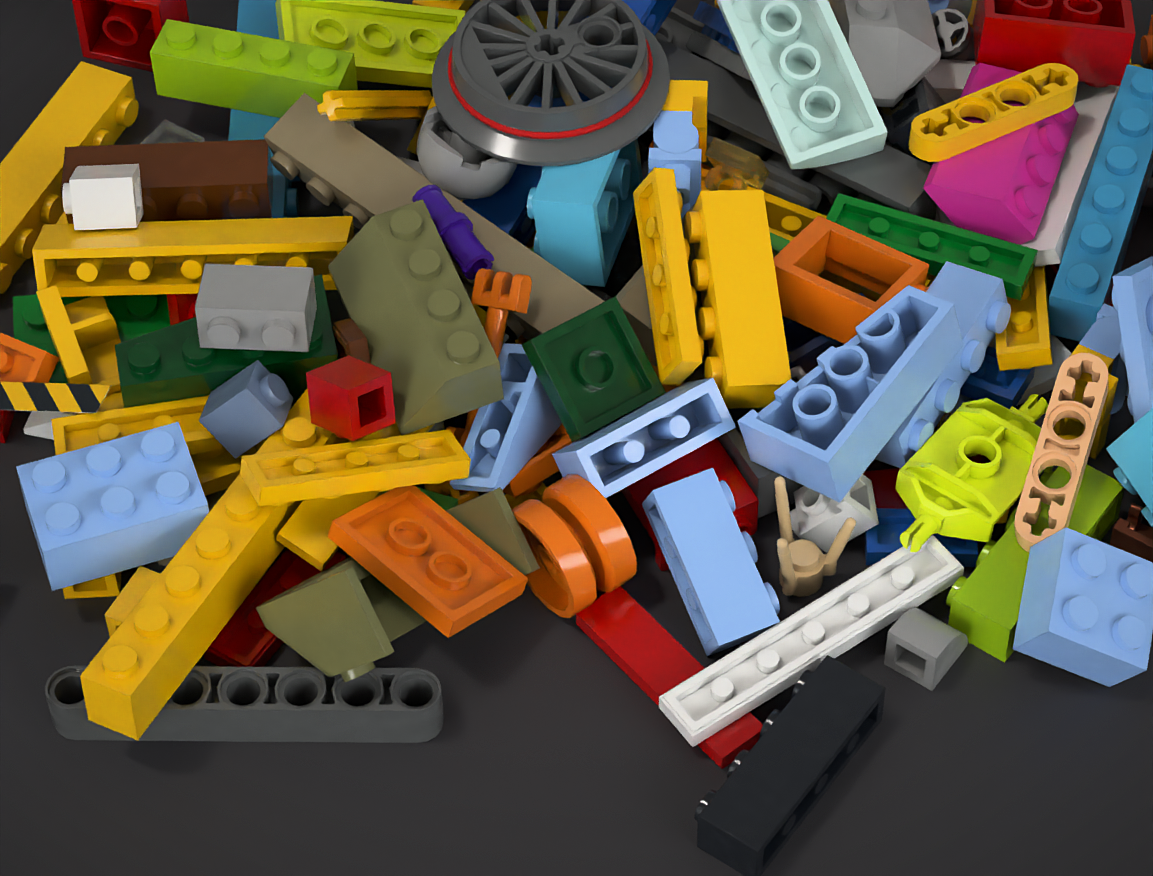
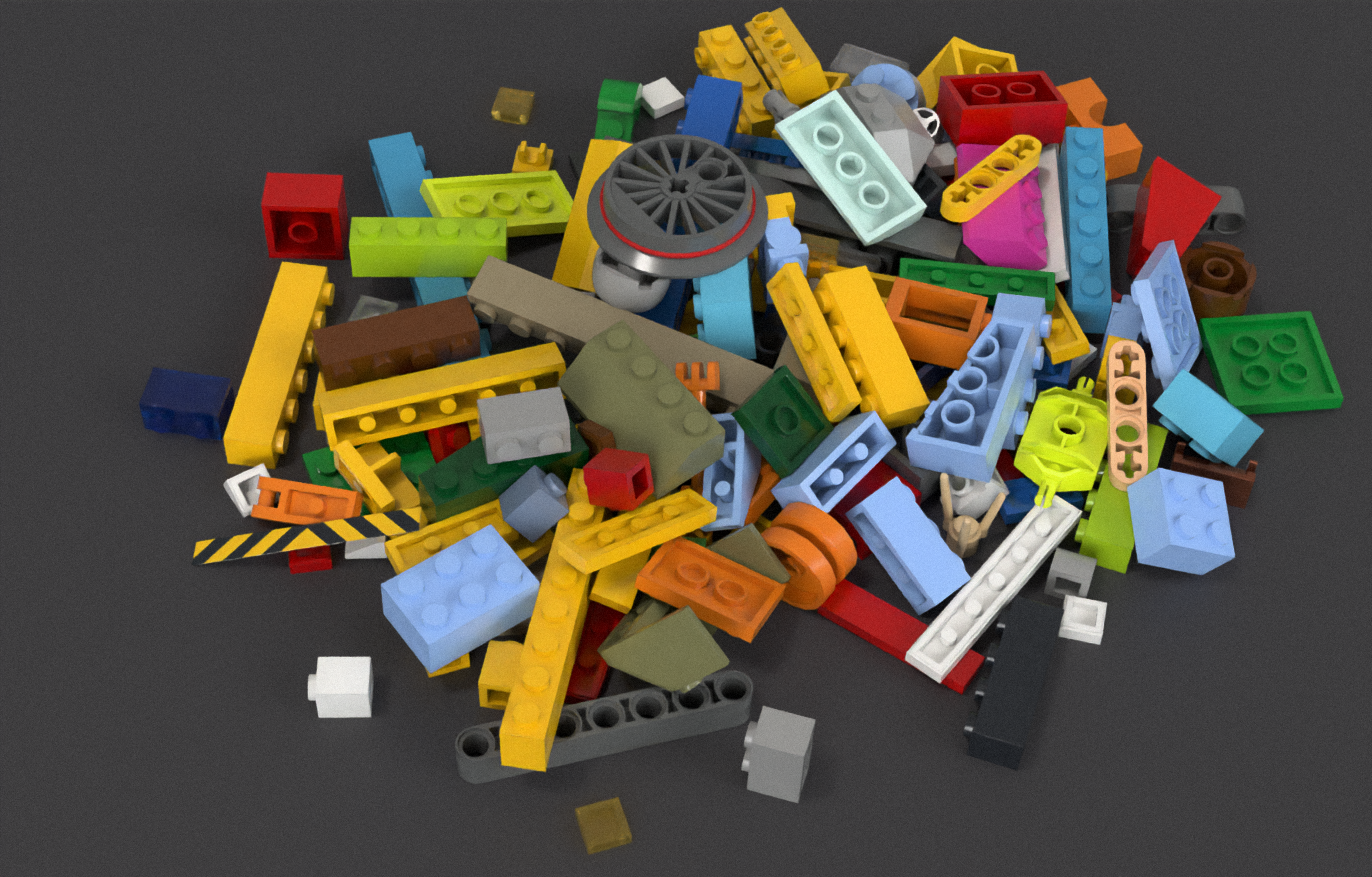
camera: 20 degrees left, 0 degrees up
(104, 197) = (362, 363): white brick -> none
(198, 826) = (603, 825): none -> clear yellow tile
(374, 104) = (536, 254): yellow axle -> none
(438, 786) = (778, 753): none -> light grey brick
(455, 232) = (649, 334): dark purple pin -> none
(919, 708) = (1083, 619): none -> white tile

